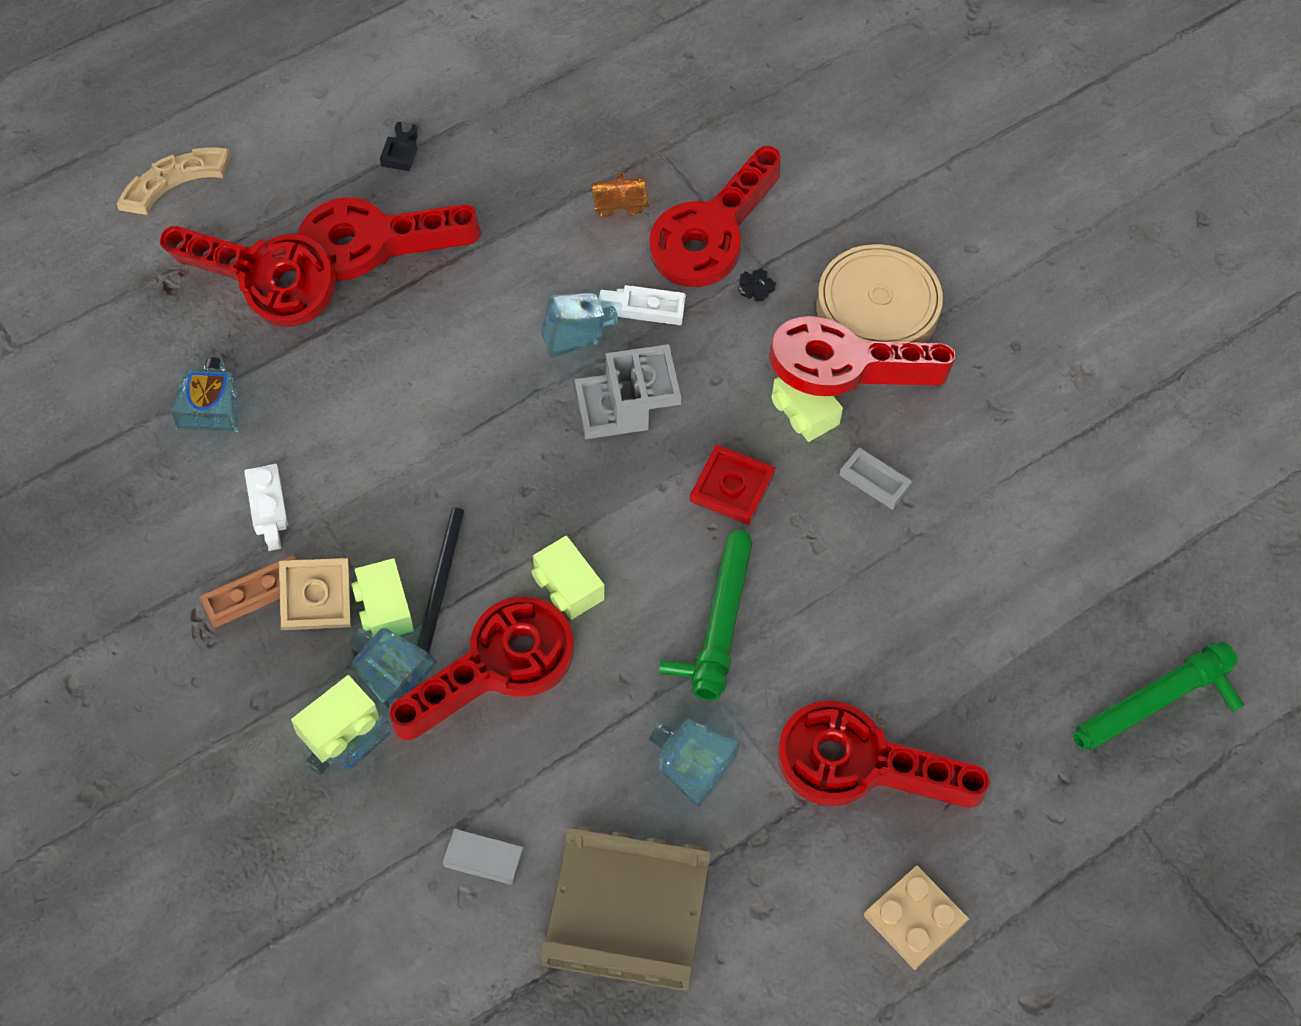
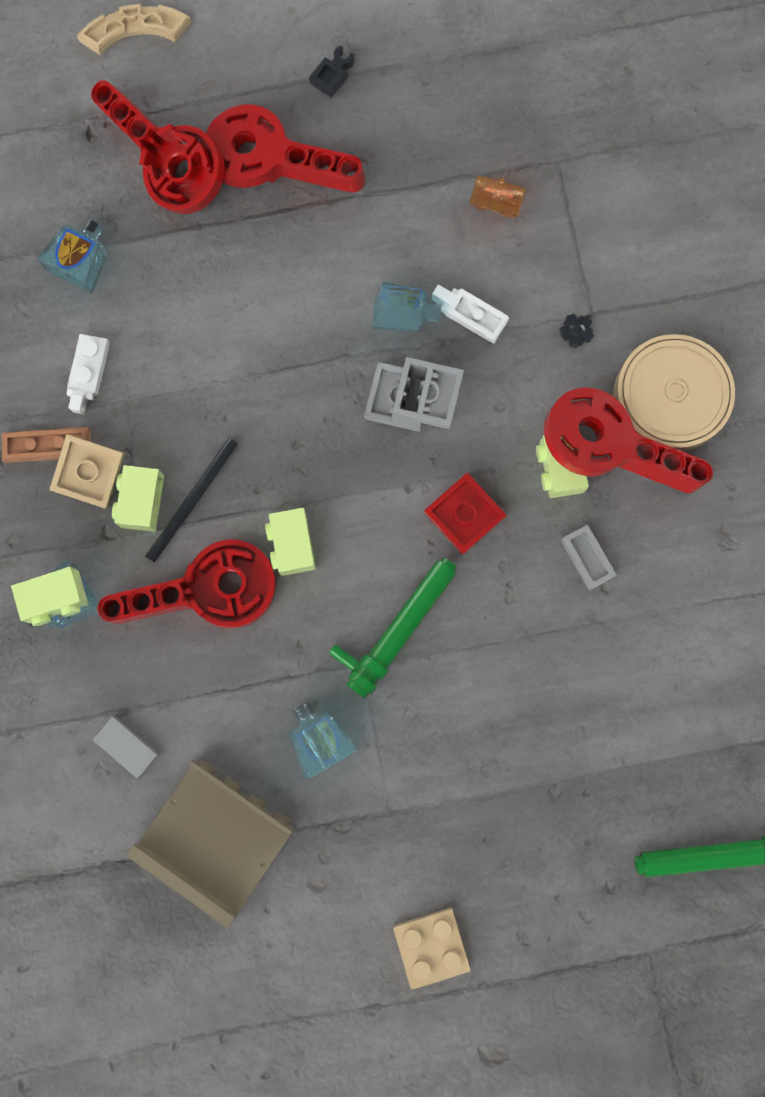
camera: 30 degrees right, 20 degrees up
(389, 664) = (118, 559): clear light blue torso -> none
(709, 223) = (563, 257): red beam -> none
(865, 763) = (455, 802): red beam -> none

